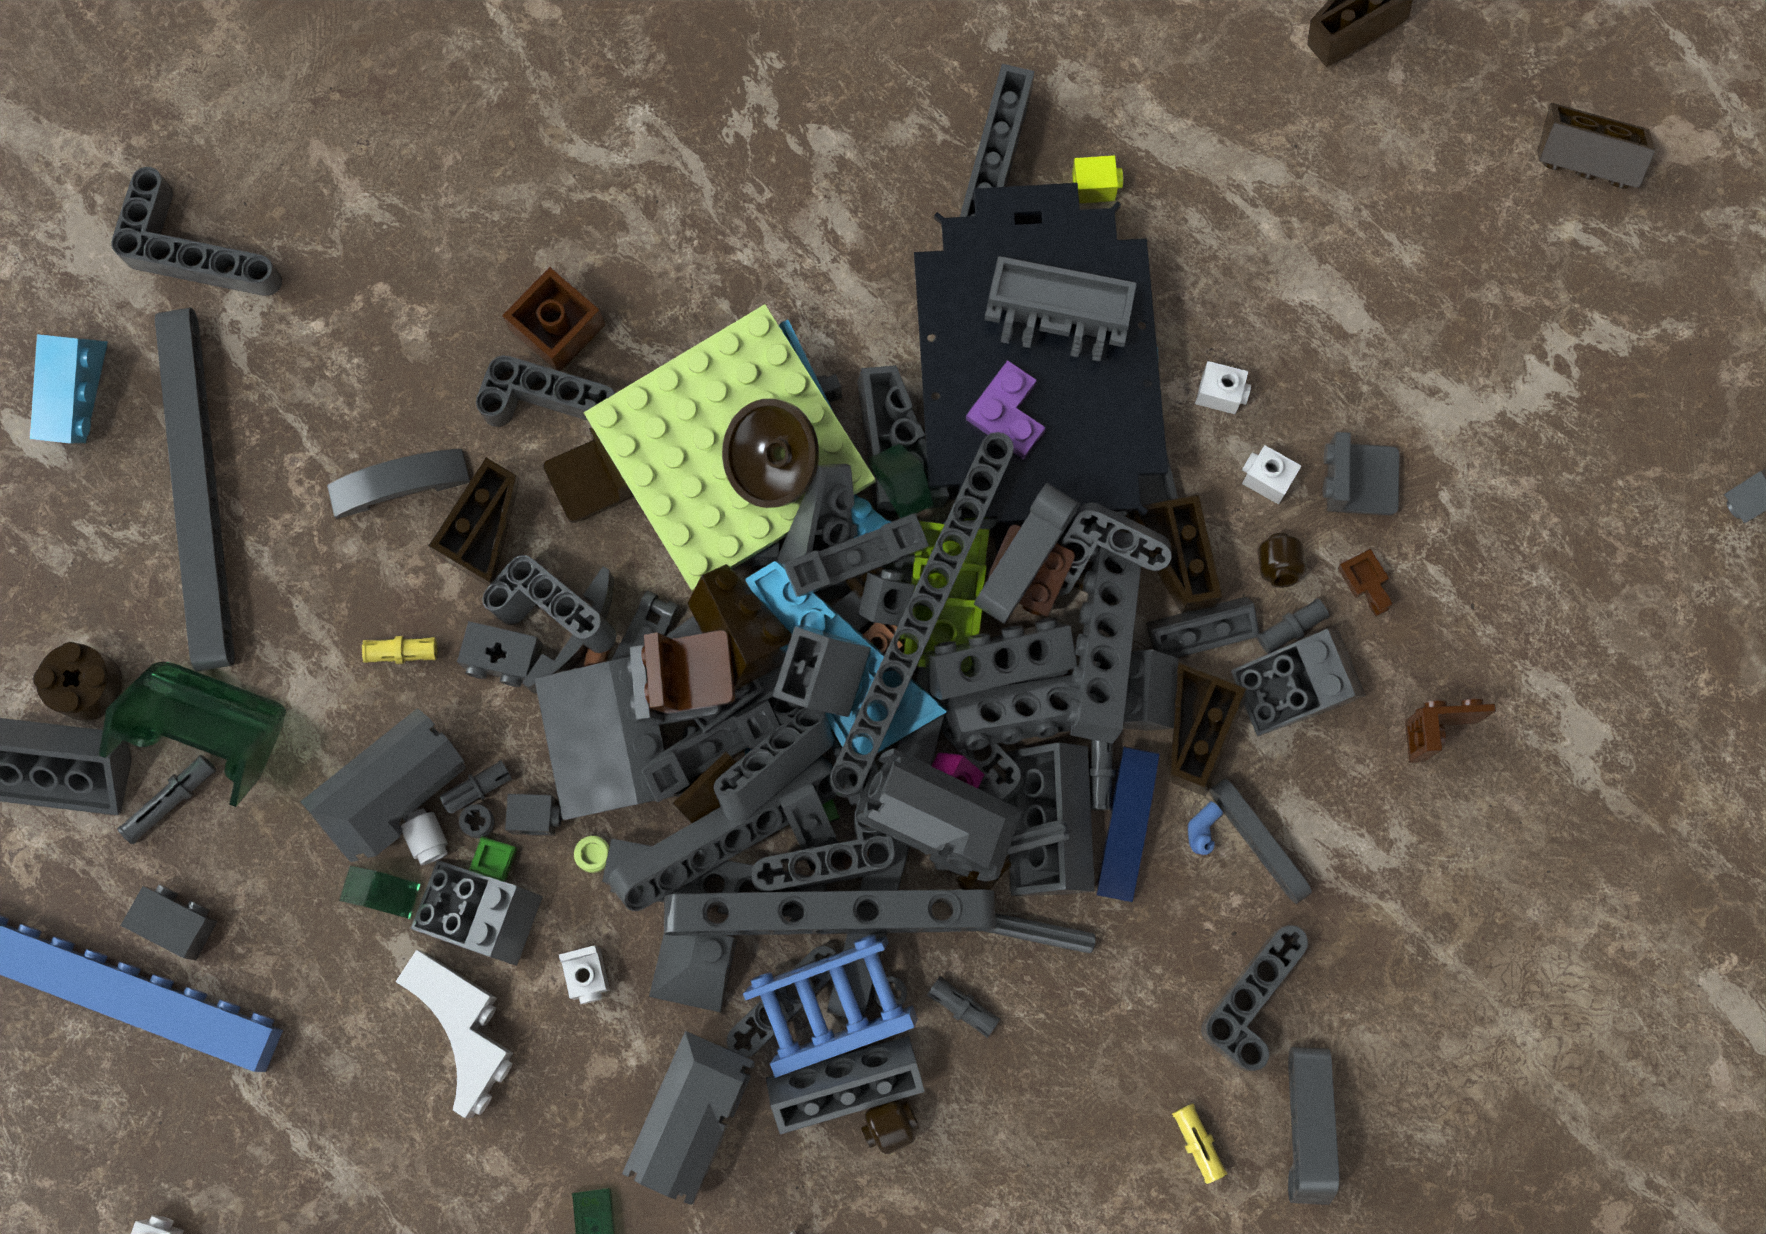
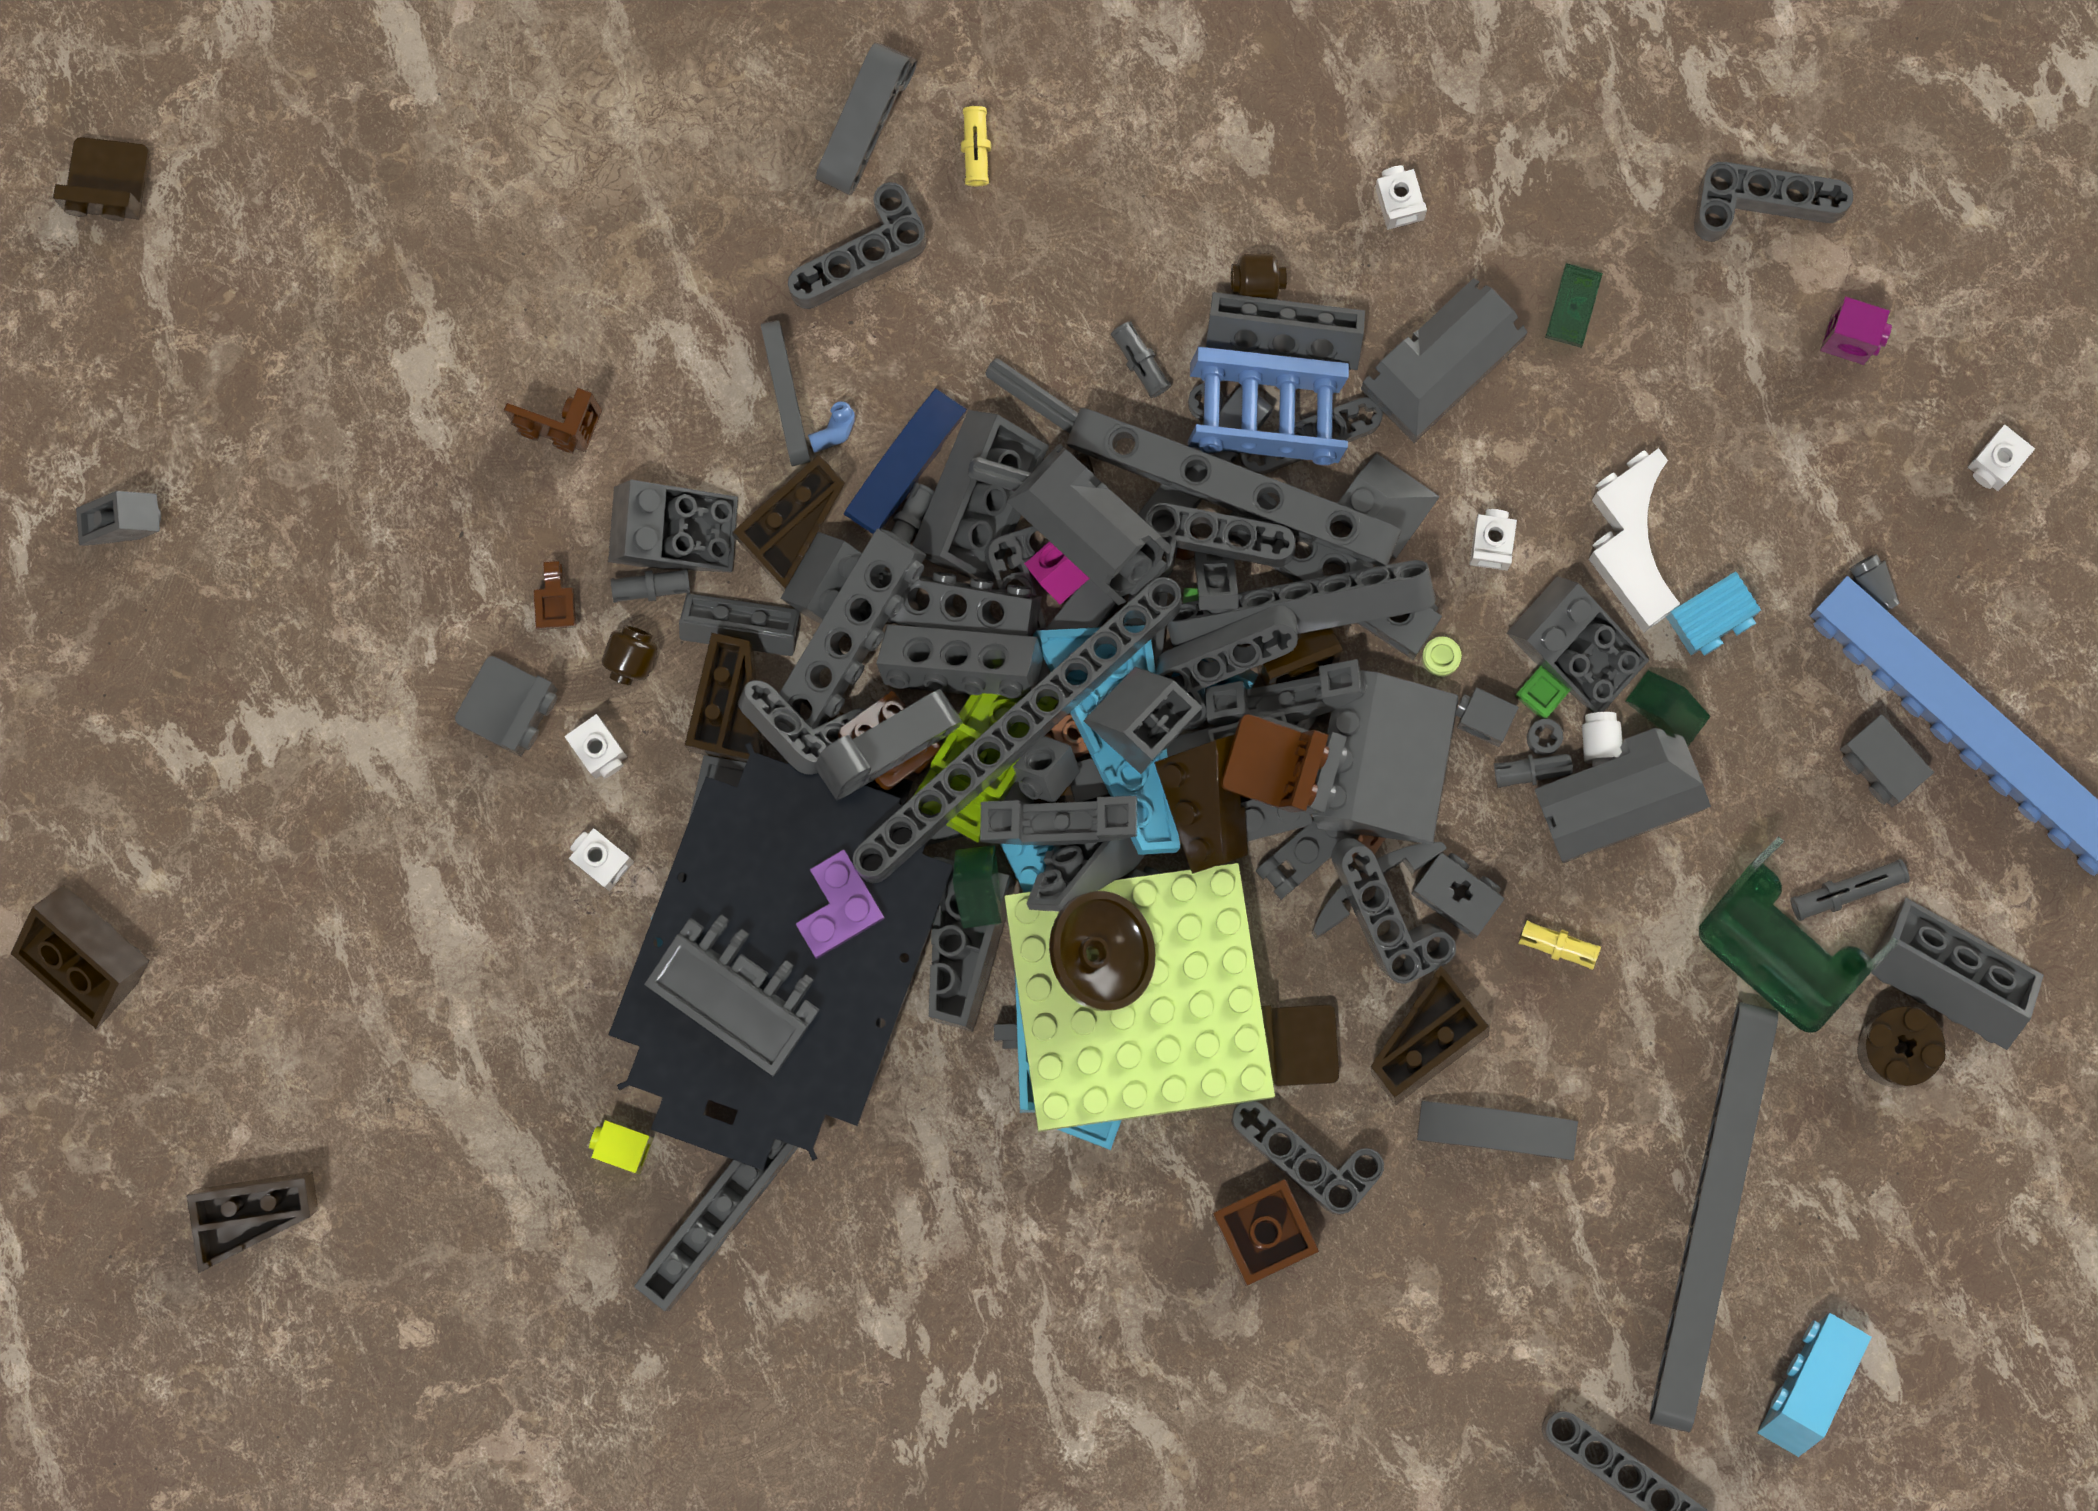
camera: 155 degrees left, 5 degrees up
(231, 1082) = (1875, 580): none -> dark grey cone
(364, 990) = (1714, 614): none -> medium azure brick

